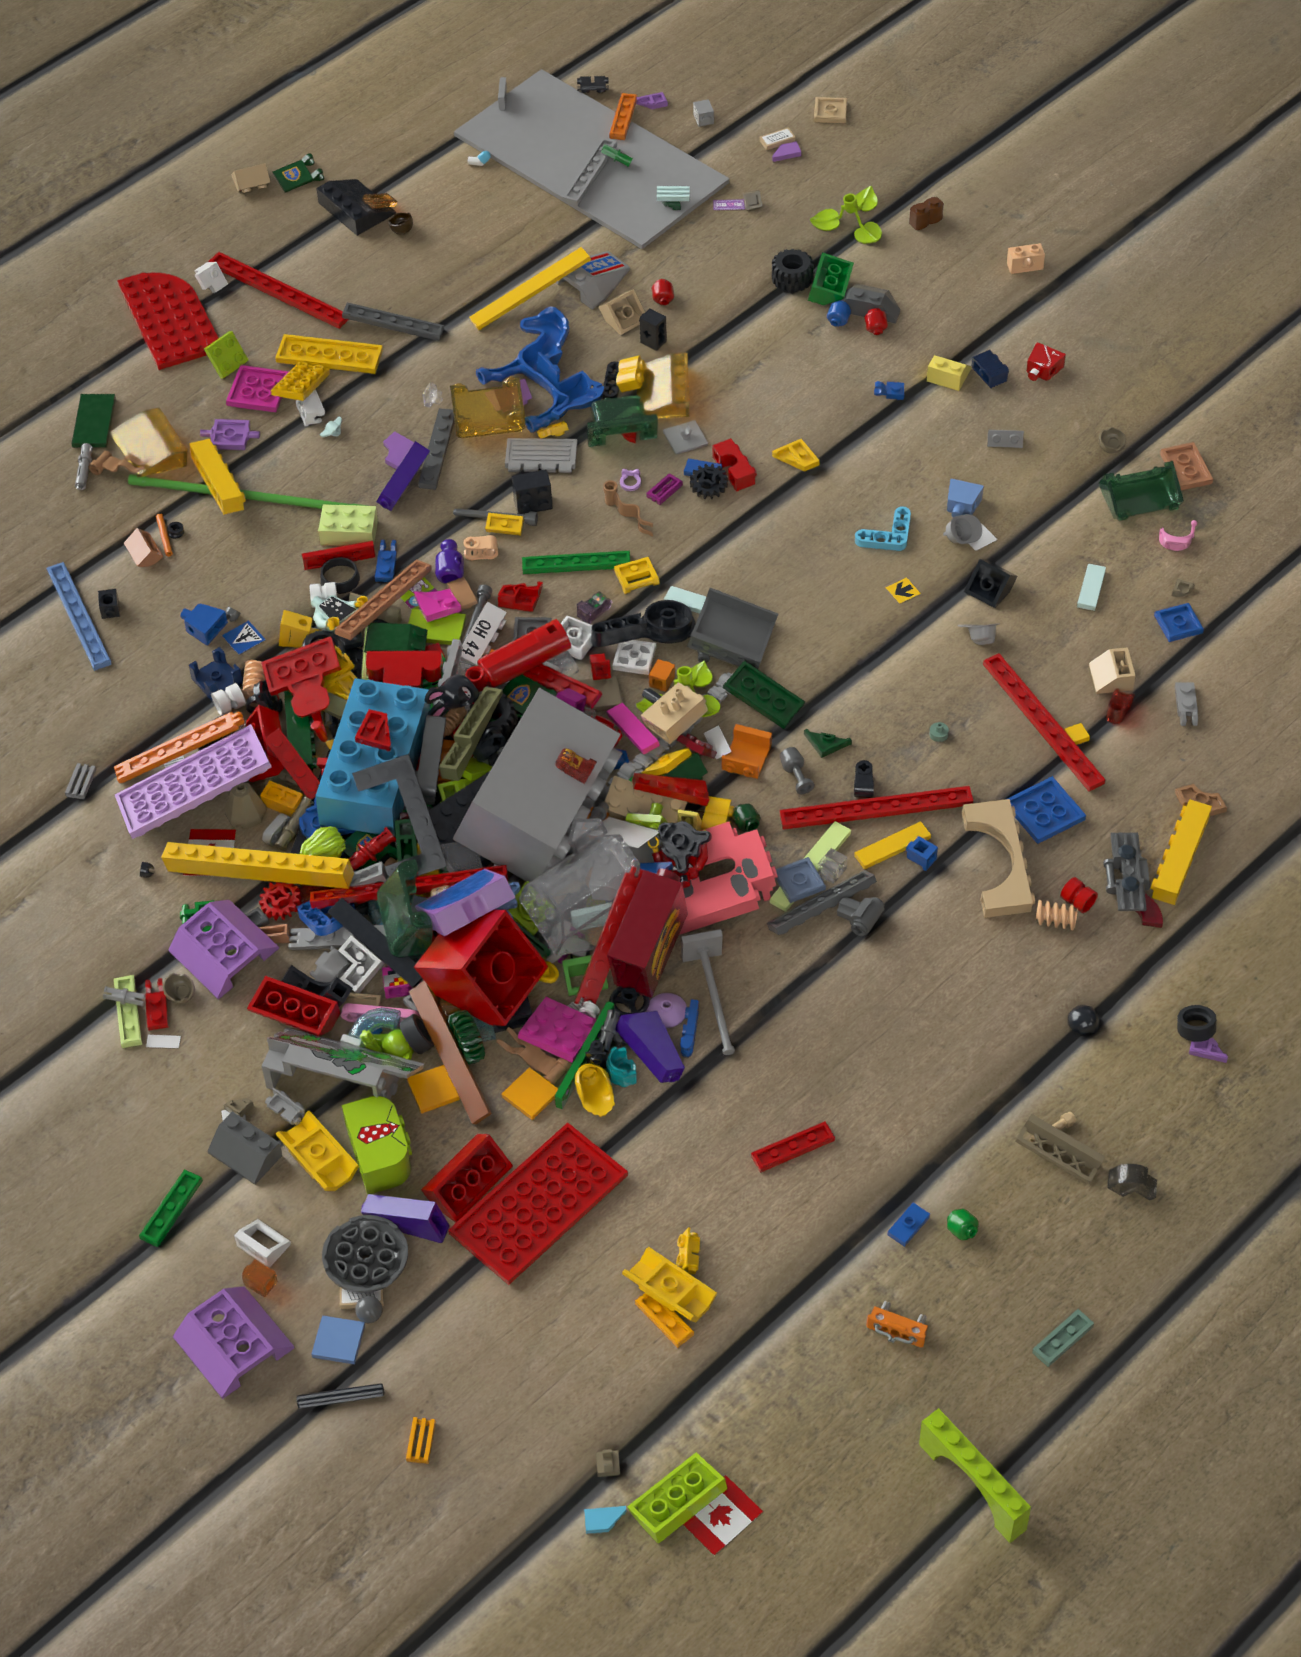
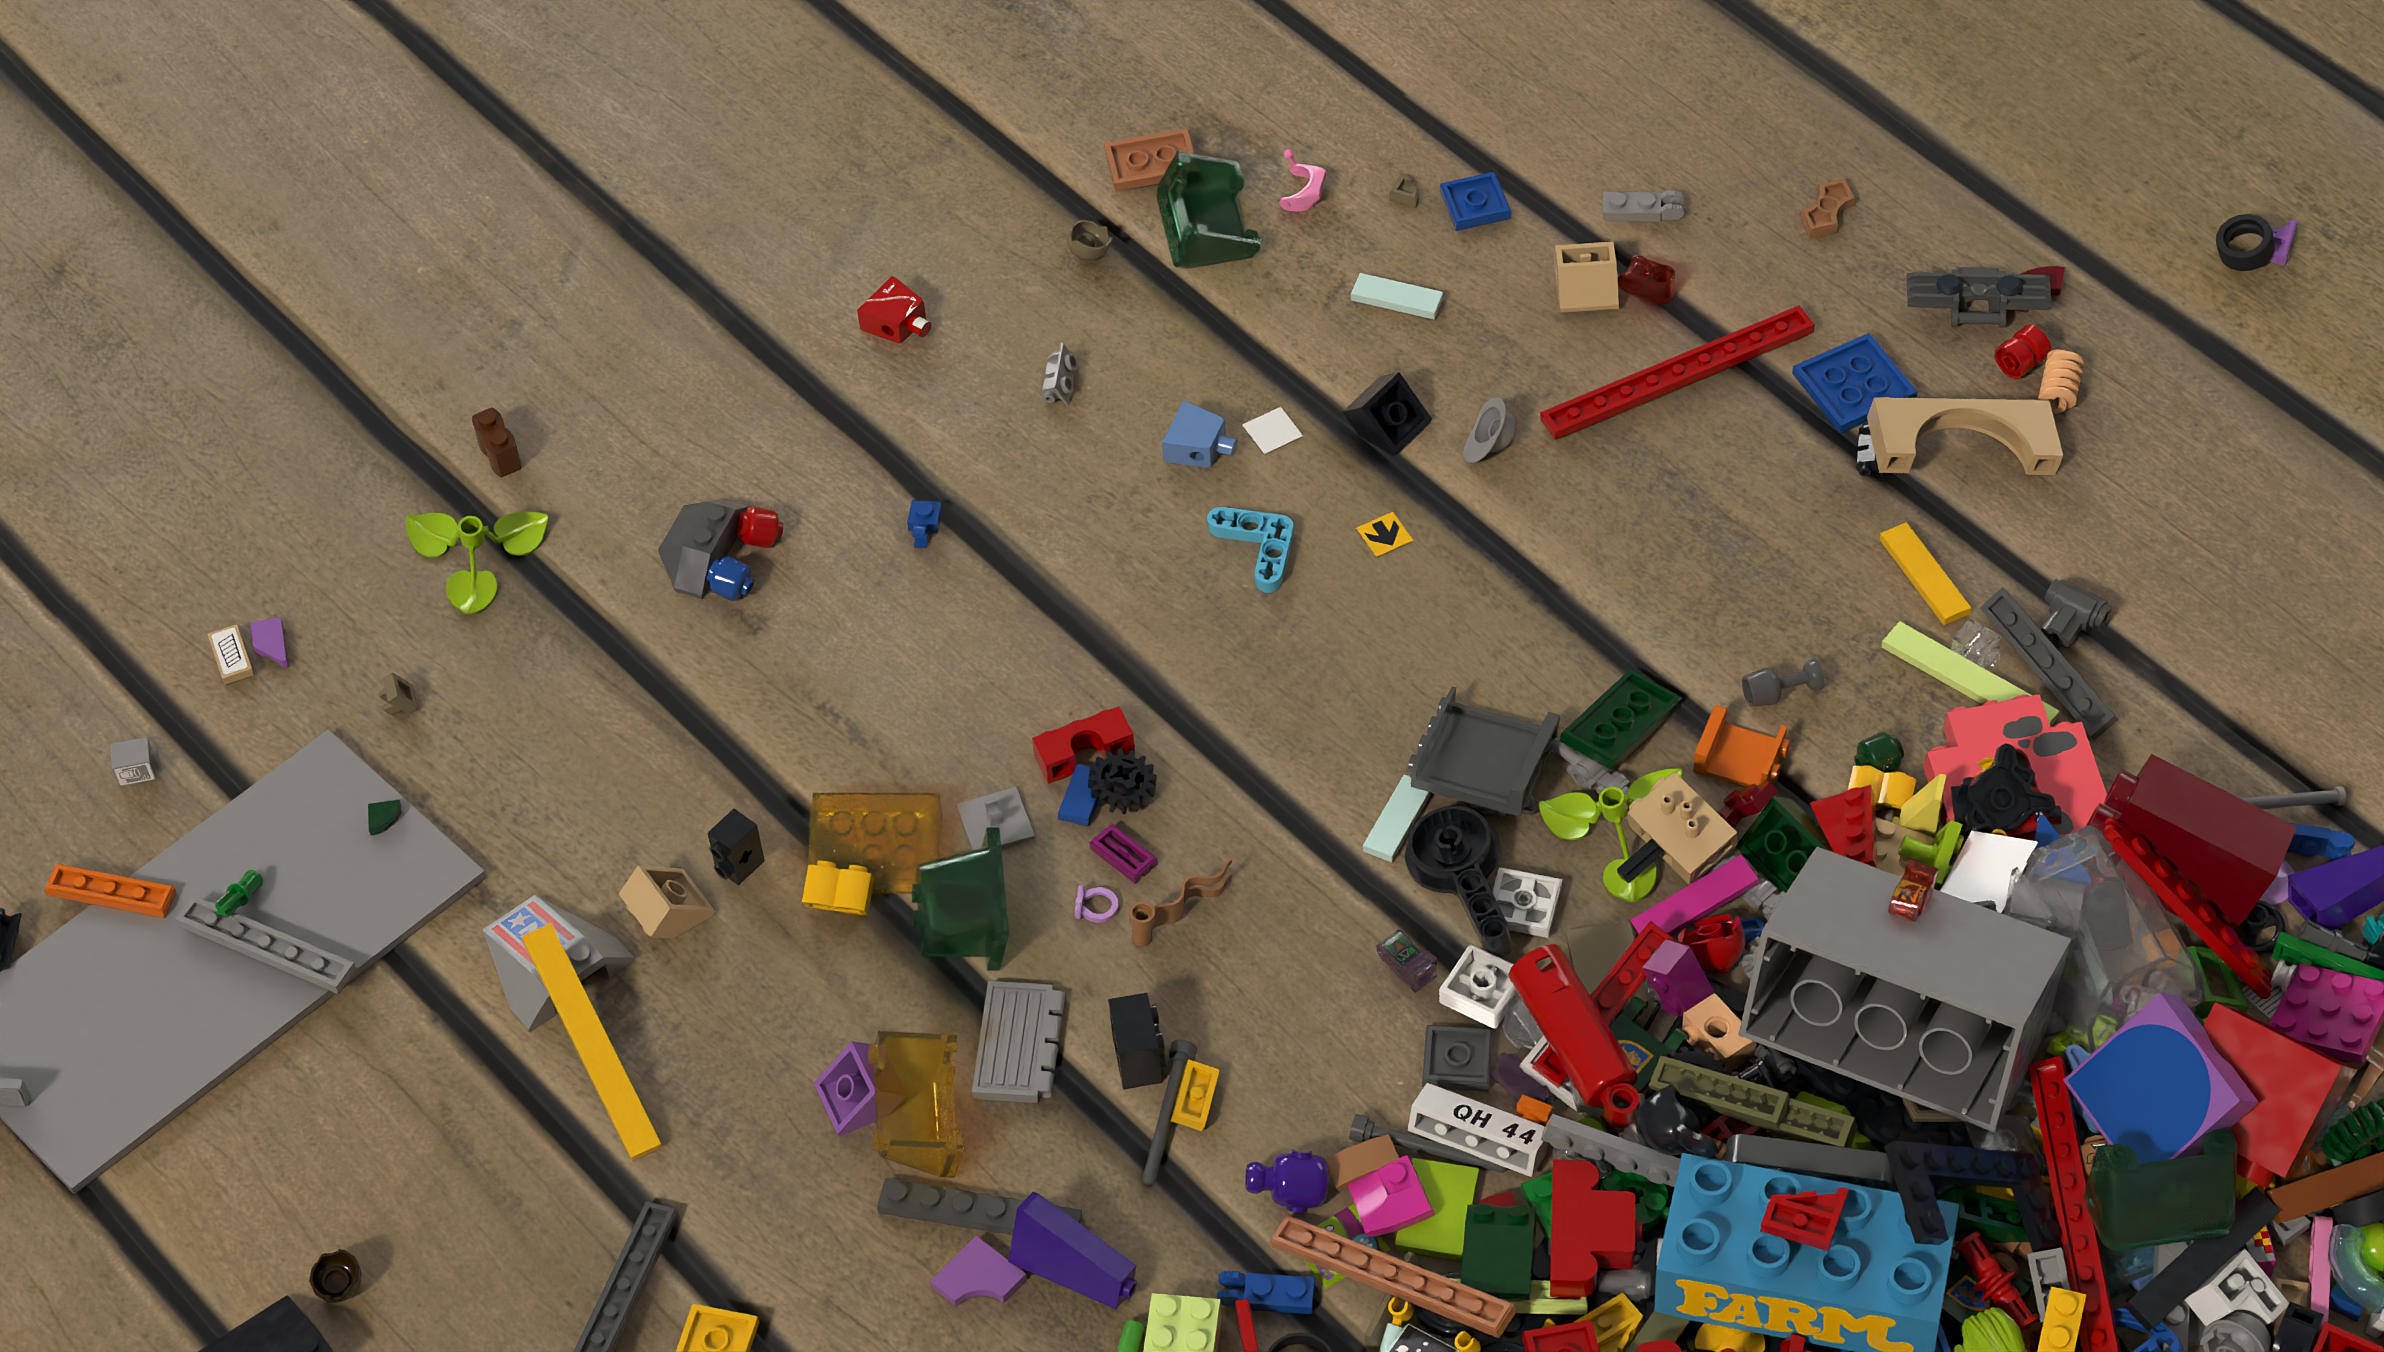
camera: 85 degrees left, 0 degrees up
(380, 200) = (262, 1315): clear orange tile -> none
(431, 395) = (842, 1219): clear tile -> none
(480, 160) = (170, 1141): arm -> none
(483, 547) = (1252, 1132): light nougat piece -> none
(519, 596) = (1370, 1073): red slope -> none
(539, 363) = (867, 988): blue animal -> none
(555, 429) = (958, 1013): yellow plate -> none
(574, 562) = (1291, 990): green tile -> none
(600, 667) = (1563, 936): red brick -> none
(608, 377) = (851, 936): black beam -> none
(635, 570) = (1324, 900): yellow plate -> none
(653, 101) = (66, 844): medium lavender tile -> none
(662, 291) = (624, 838): red head -> none
(662, 675) = (1571, 860): orange brick -> none
(667, 762) = (1779, 848): yellow plate -> none
(673, 193) = (372, 786): light aqua tile -> none
(717, 740) = (1717, 789): white sticker -> none
(728, 204) = (391, 738): medium lavender sticker -> none
(792, 270) = (603, 620): black tyre -> none
(797, 455) = (1068, 654): yellow wing -> none
(799, 880) = (2005, 680): sand blue tile -> none
(826, 743) = (1714, 649): dark green tile -> none
(830, 110) = (169, 572): tan tile -> none
(830, 280) = (648, 583): green slope -> none
(863, 779) = (1804, 598): black piece -> none
(875, 807) = (1854, 590): red plate -> none
(922, 852) = (1943, 537): blue brick -> none
(939, 732) = (1693, 503): sand green tile -> none
(947, 372) = (895, 438): light yellow slope -> none
(963, 529) = (1271, 443): light grey piece -> none
(990, 368) = (897, 382): dark blue brick -> none
(1025, 258) = (640, 316): light nougat brick -> none
(1077, 733) = (1698, 334): yellow tile -> none
(1084, 1019) = (2243, 369): black hair -> none
(1181, 852) = (1931, 231): yellow brick -> none

